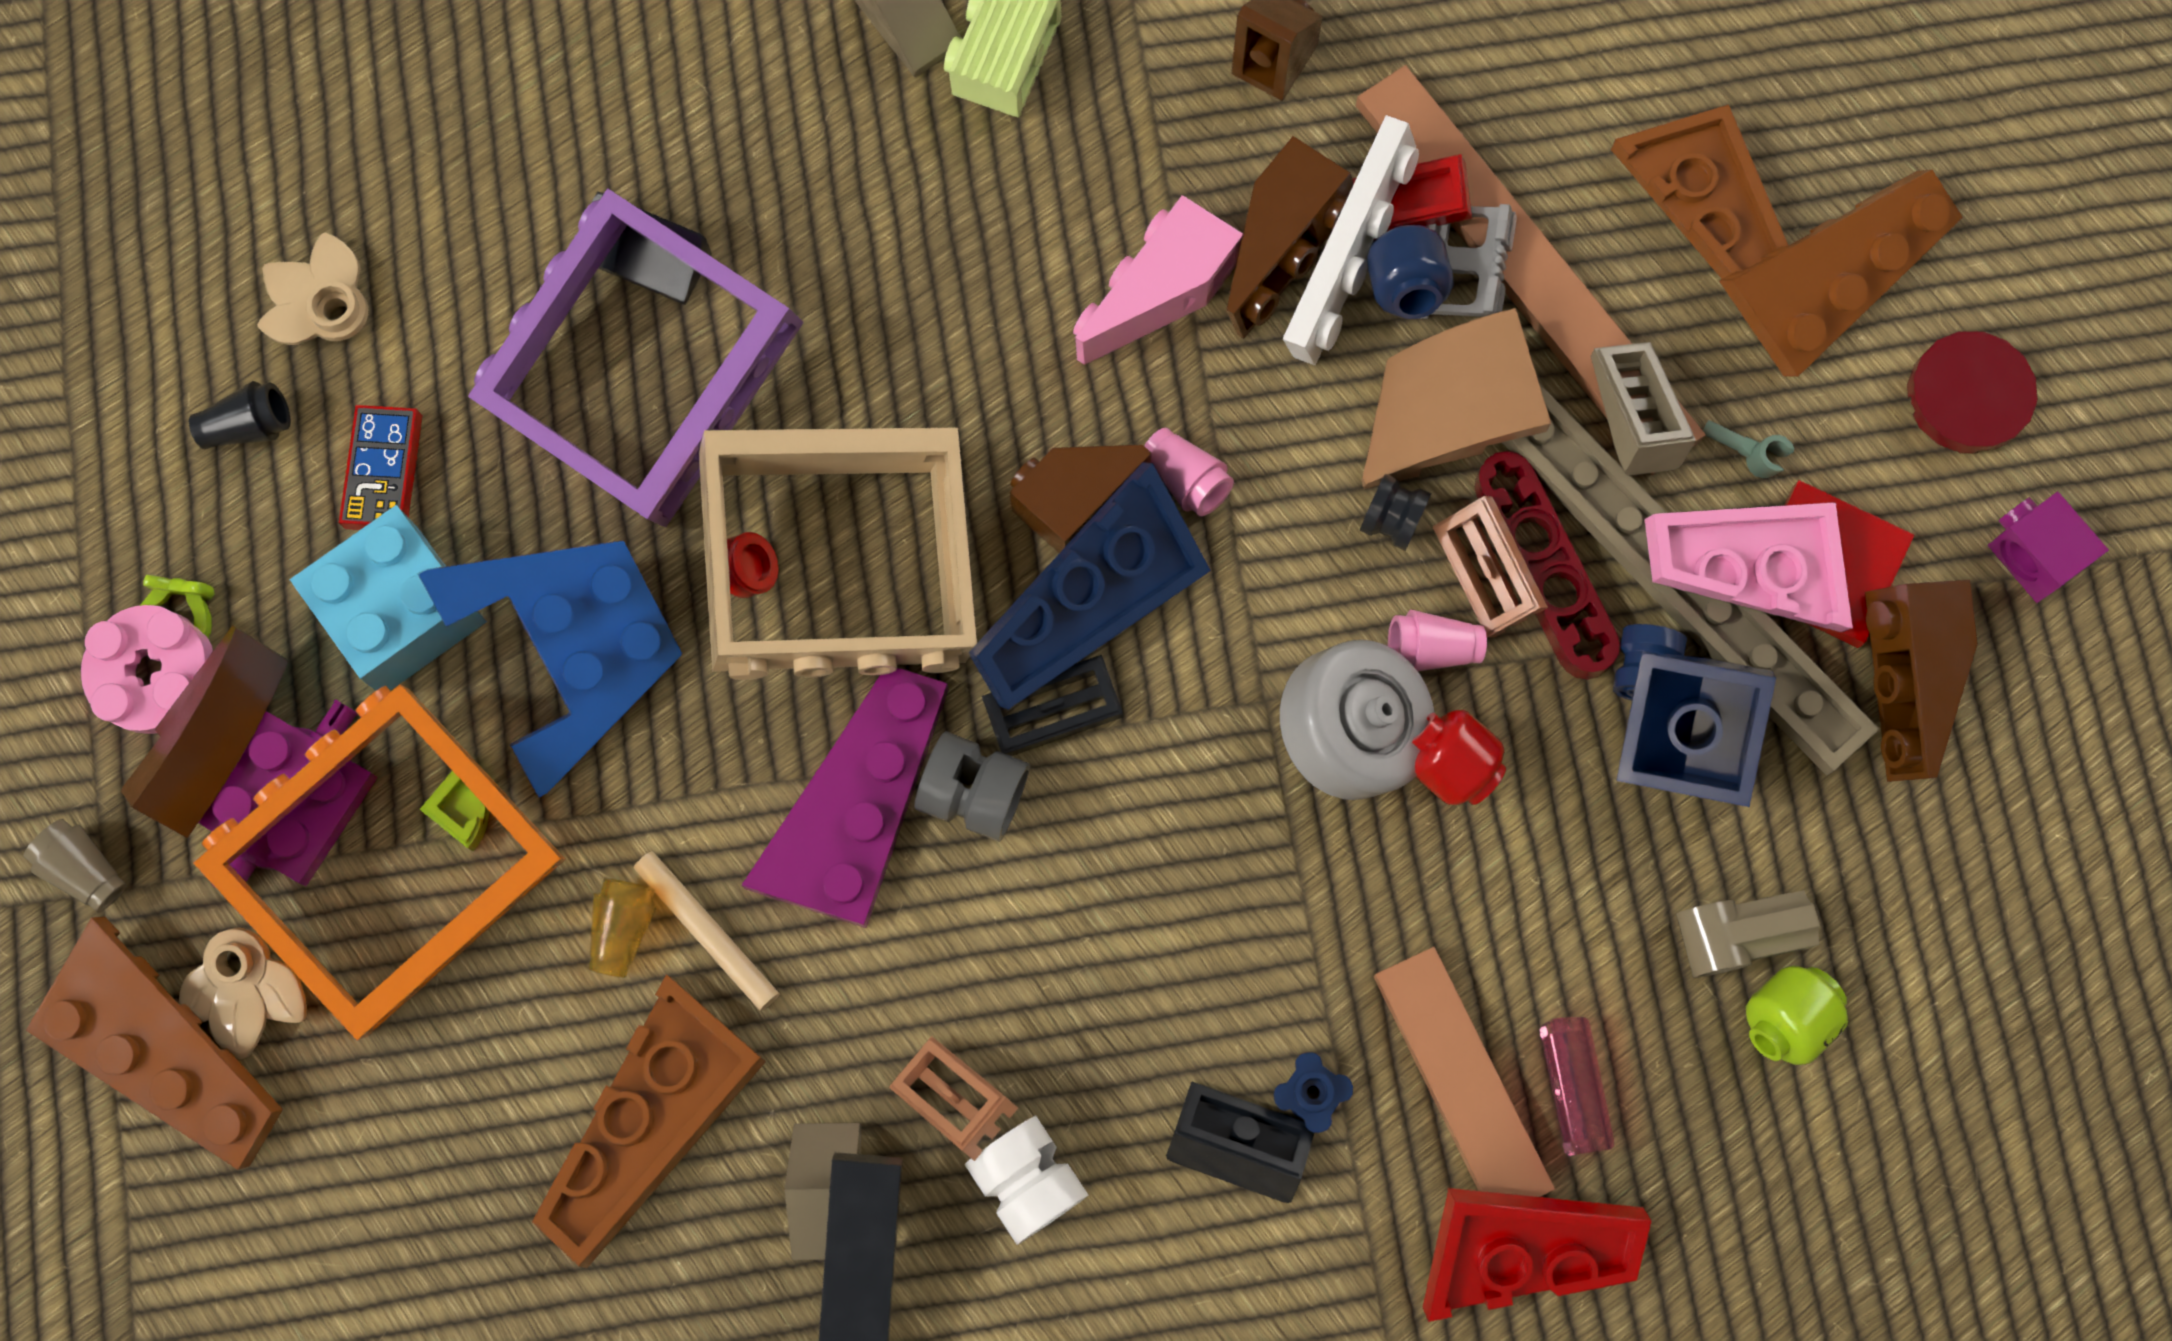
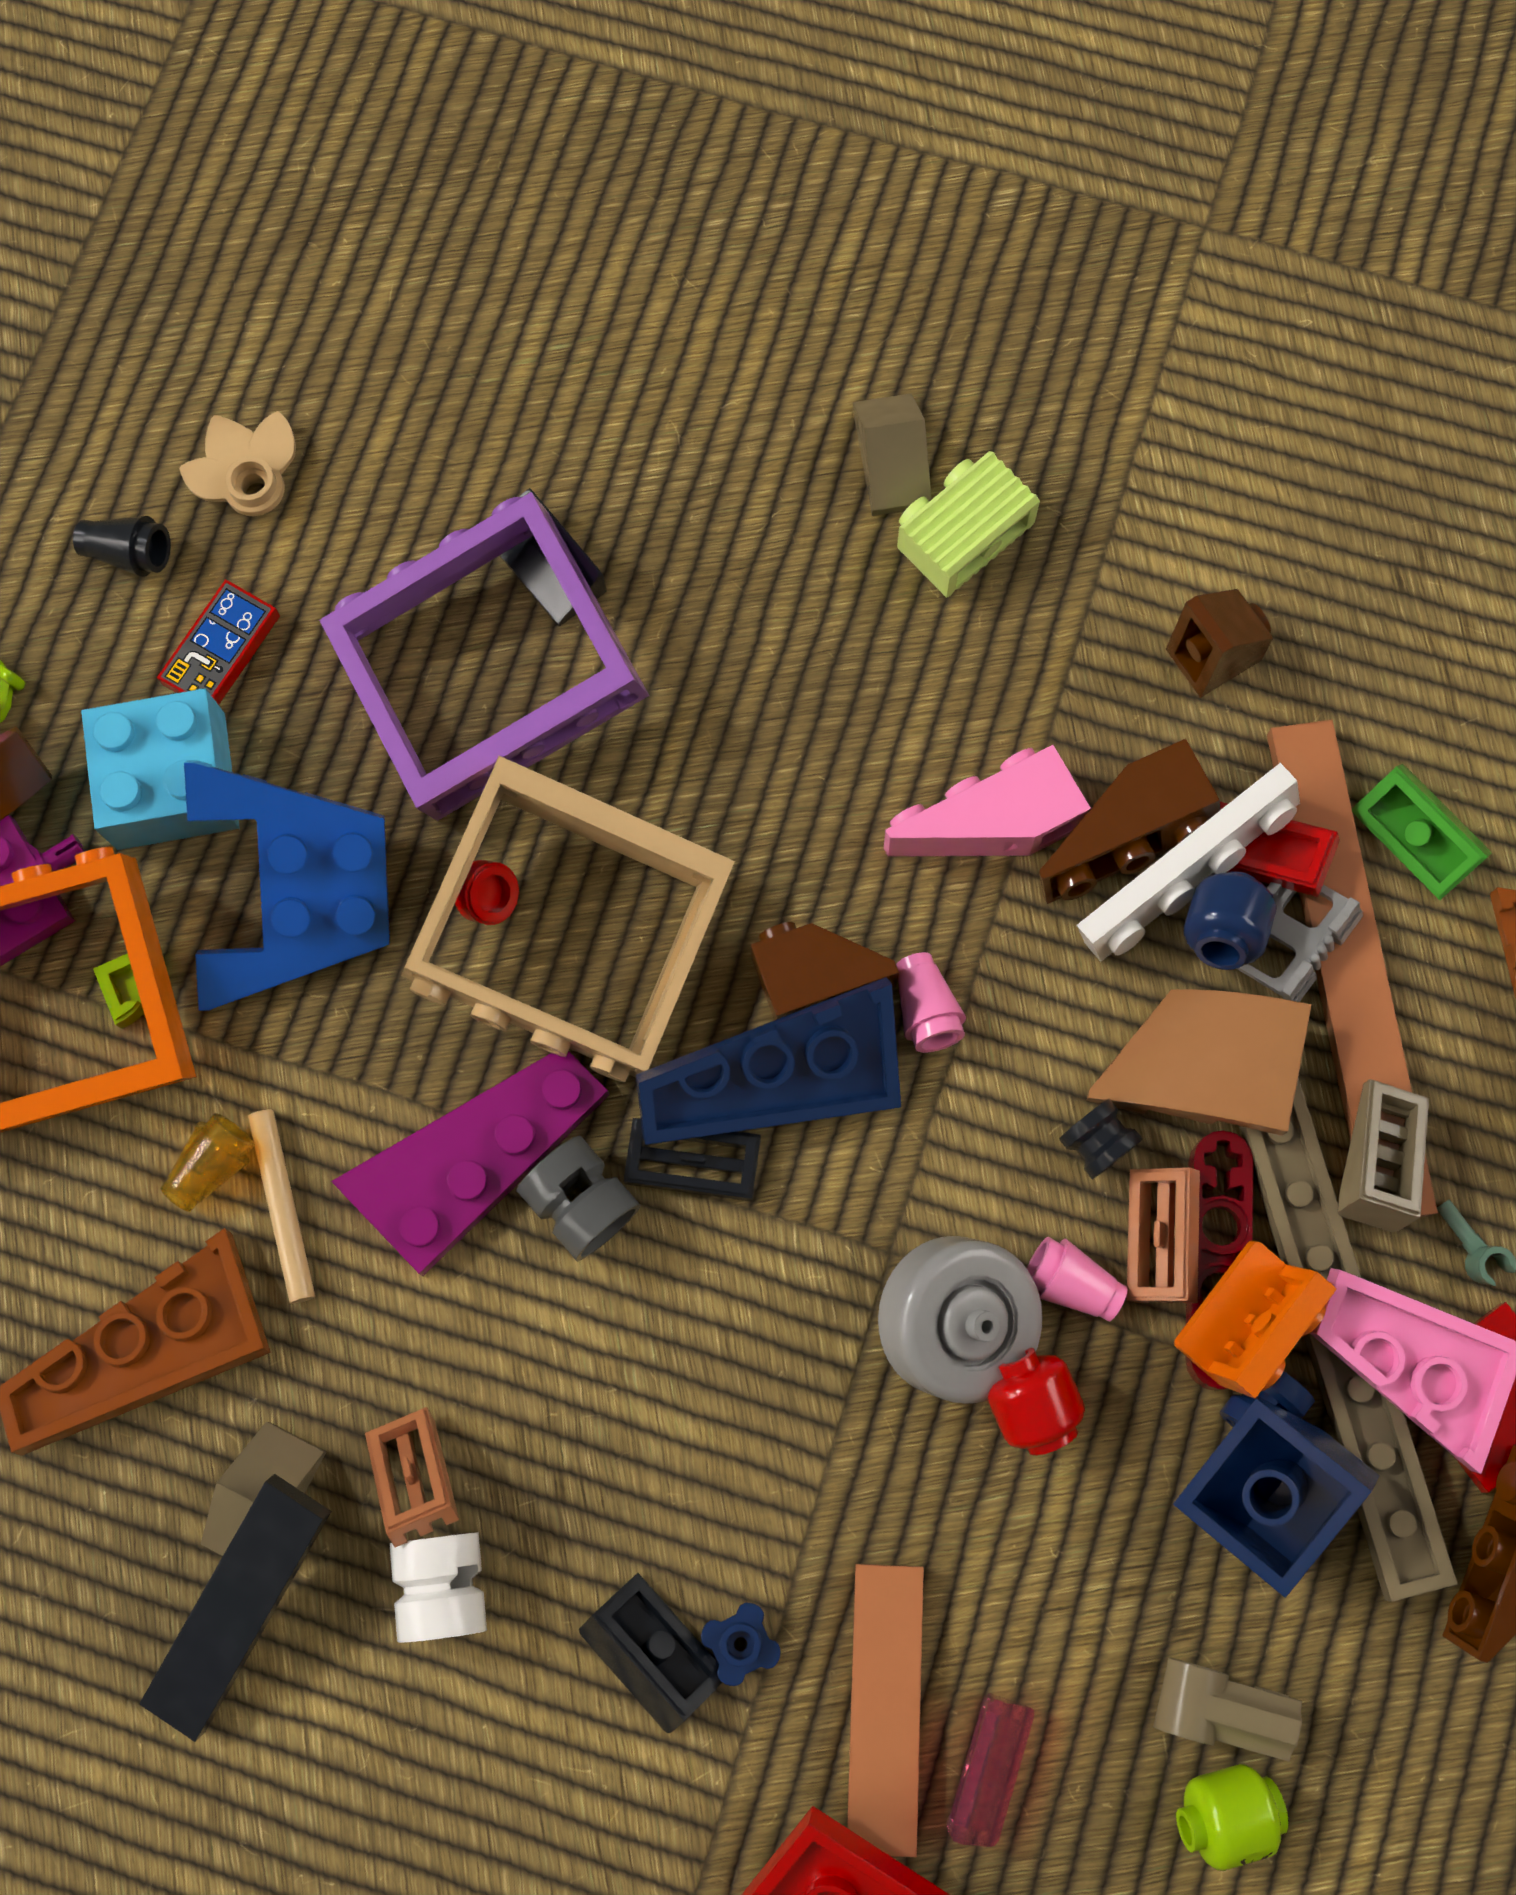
camera: 30 degrees right, 0 degrees up
(1527, 125) = (1420, 831): none -> bright green slope
(1605, 593) = (1254, 1320): none -> orange bracket

